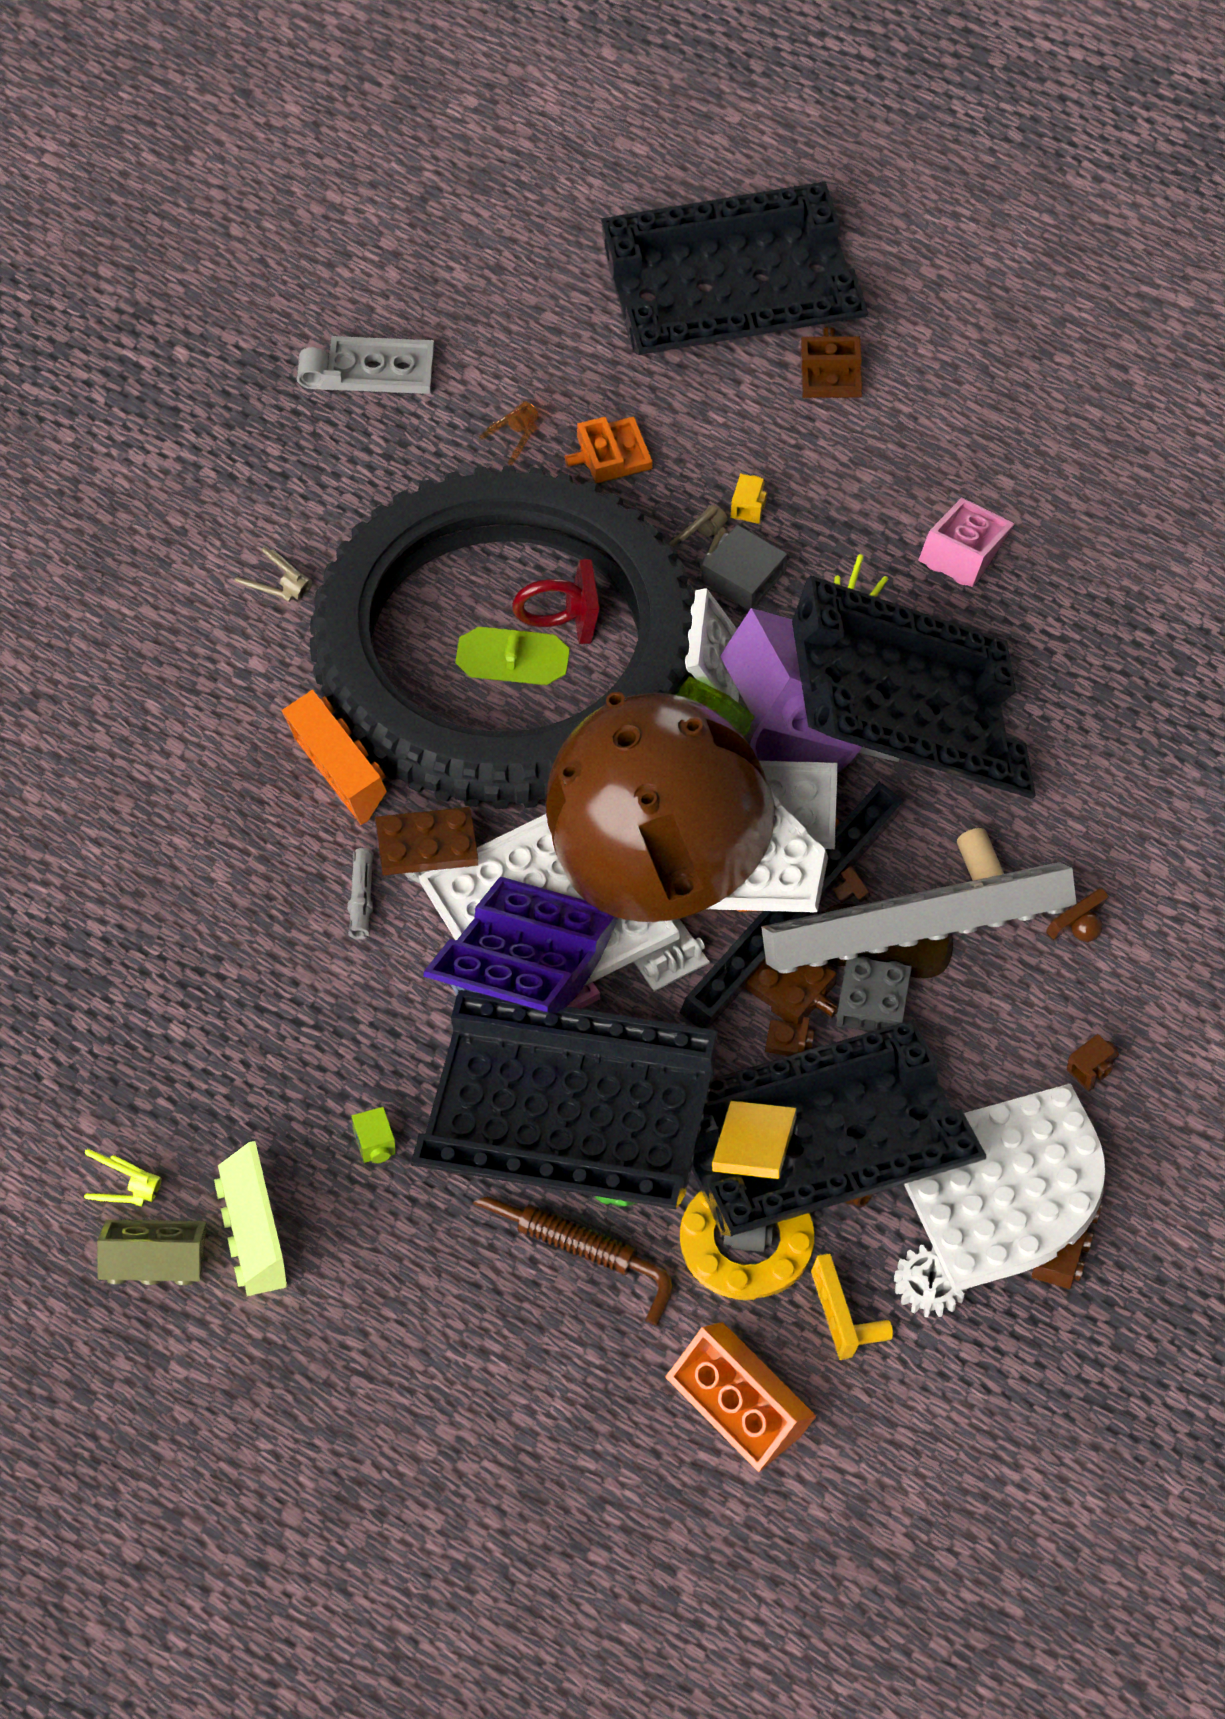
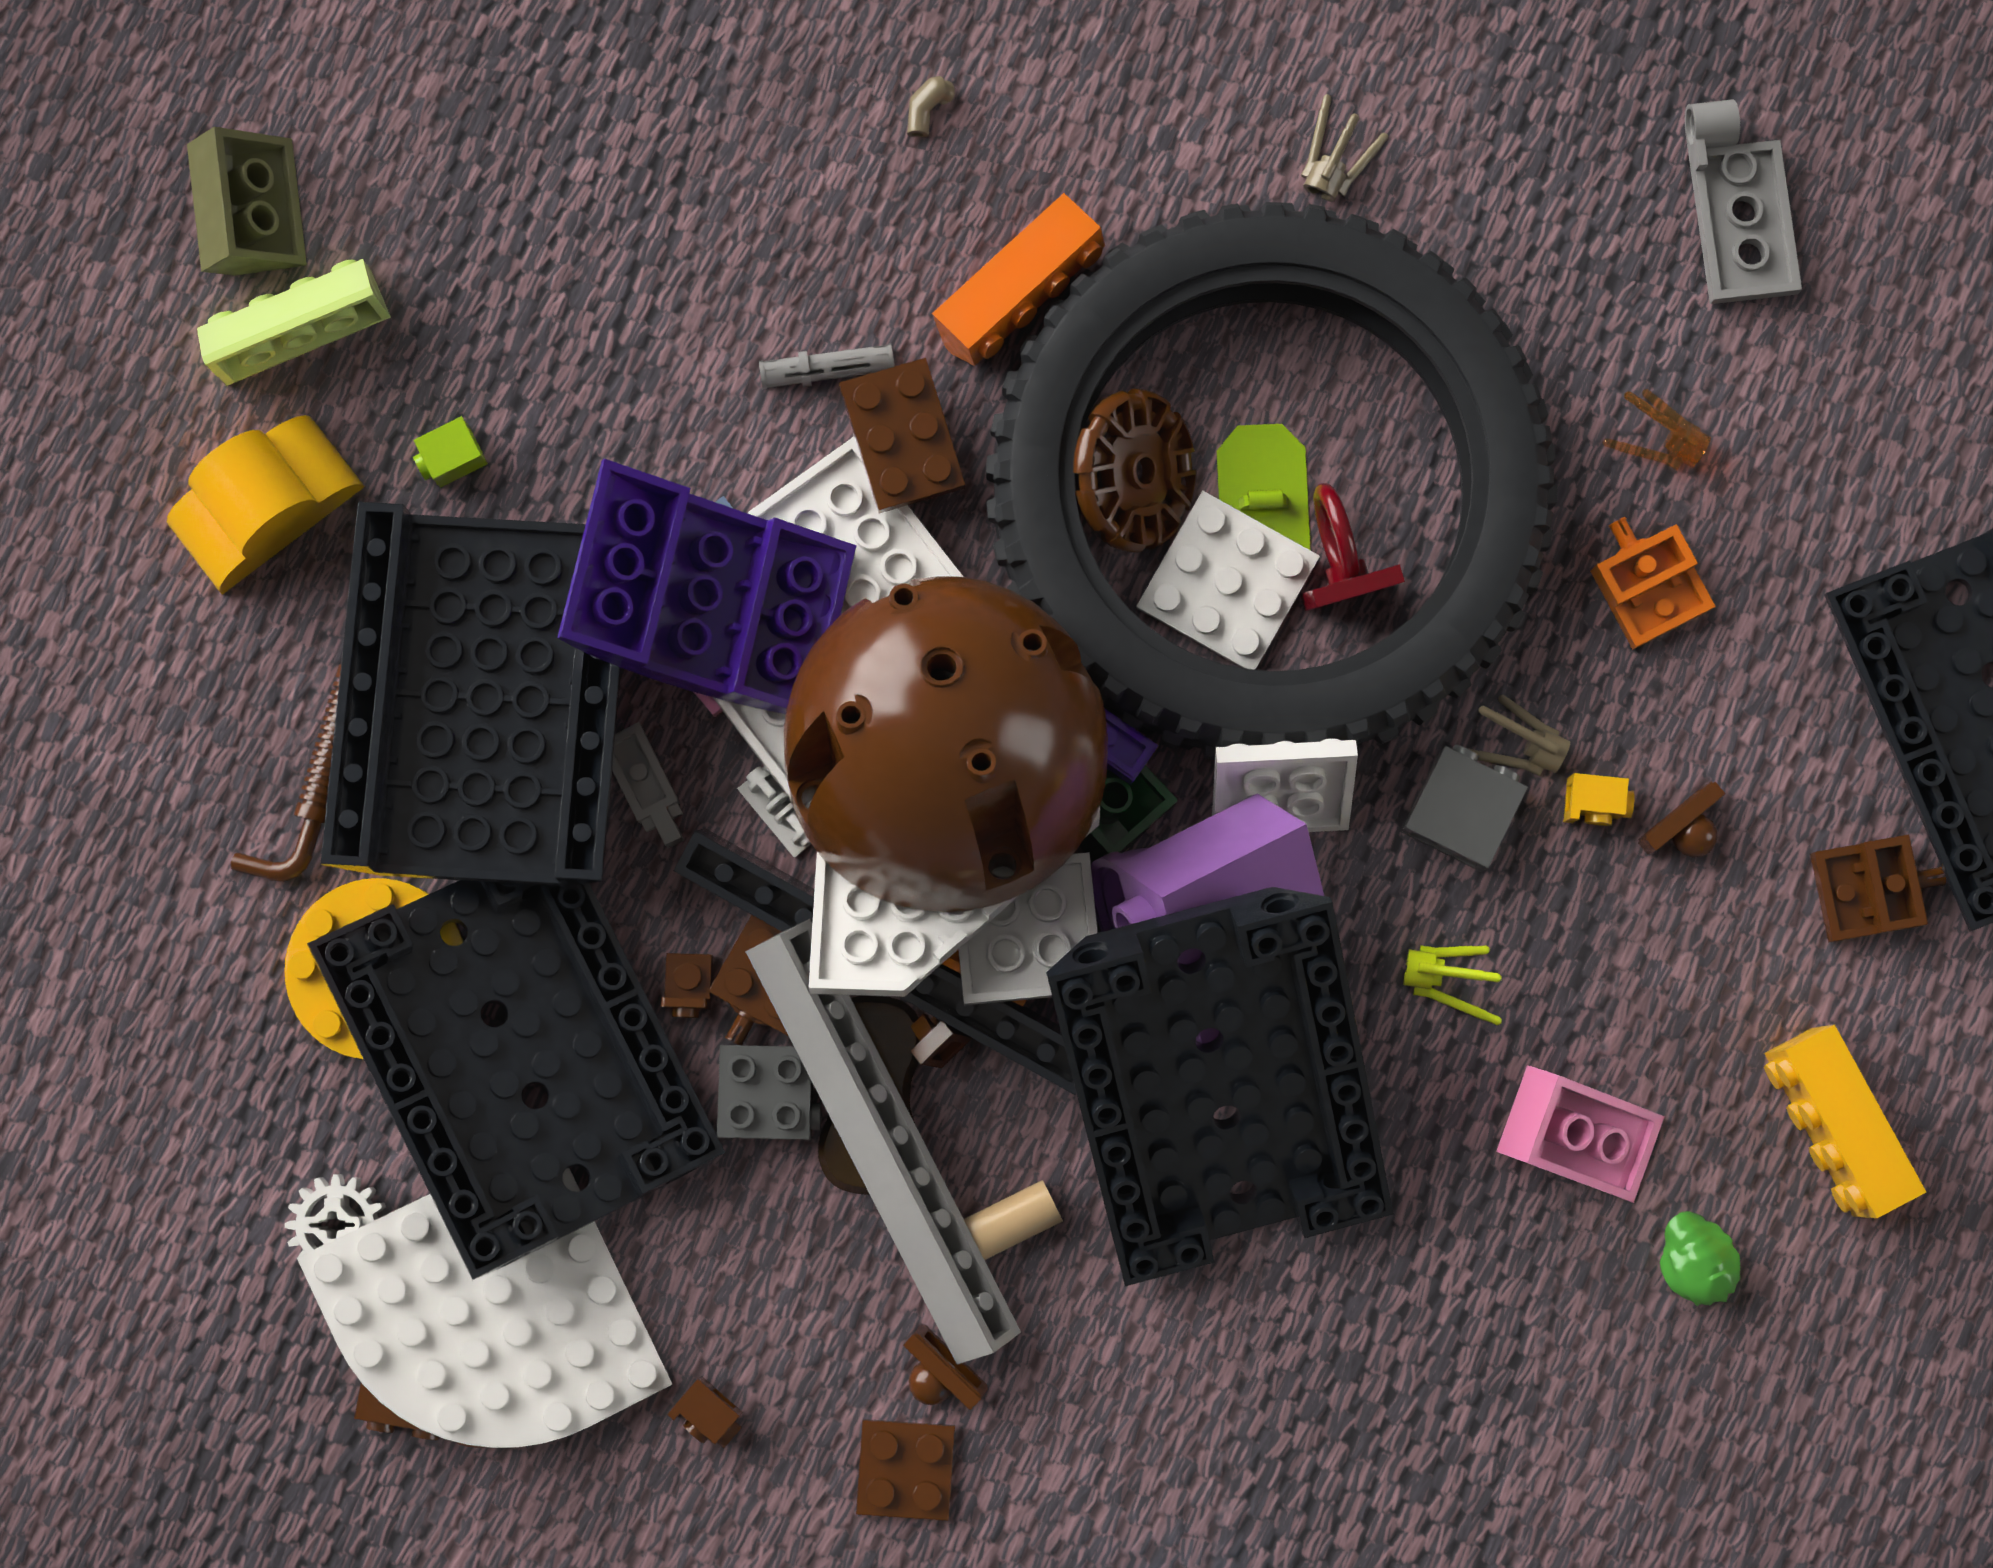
camera: 85 degrees right, 25 degrees up
(141, 1182) = (335, 169): neon yellow plant -> none
(181, 809) = (921, 103): none -> dark tan arm
(388, 1266) = (259, 497): none -> yellow brick
(479, 707) = (1133, 424): none -> reddish brown plate
(560, 676) = (1227, 581): none -> white plate
(719, 702) = (1153, 797): clear neon green brick -> none
(739, 1395) = (136, 995): orange slope -> none
(754, 1140) = (481, 957): yellow tile -> none
(773, 454) = (1691, 831): none -> reddish brown tile
(844, 1333) = (241, 1121): yellow piece -> none
(979, 397) = (1843, 1123): none -> yellow brick
(1057, 489) = (1699, 1259): none -> bright green hair
(1144, 952) = (905, 1469): none -> reddish brown plate

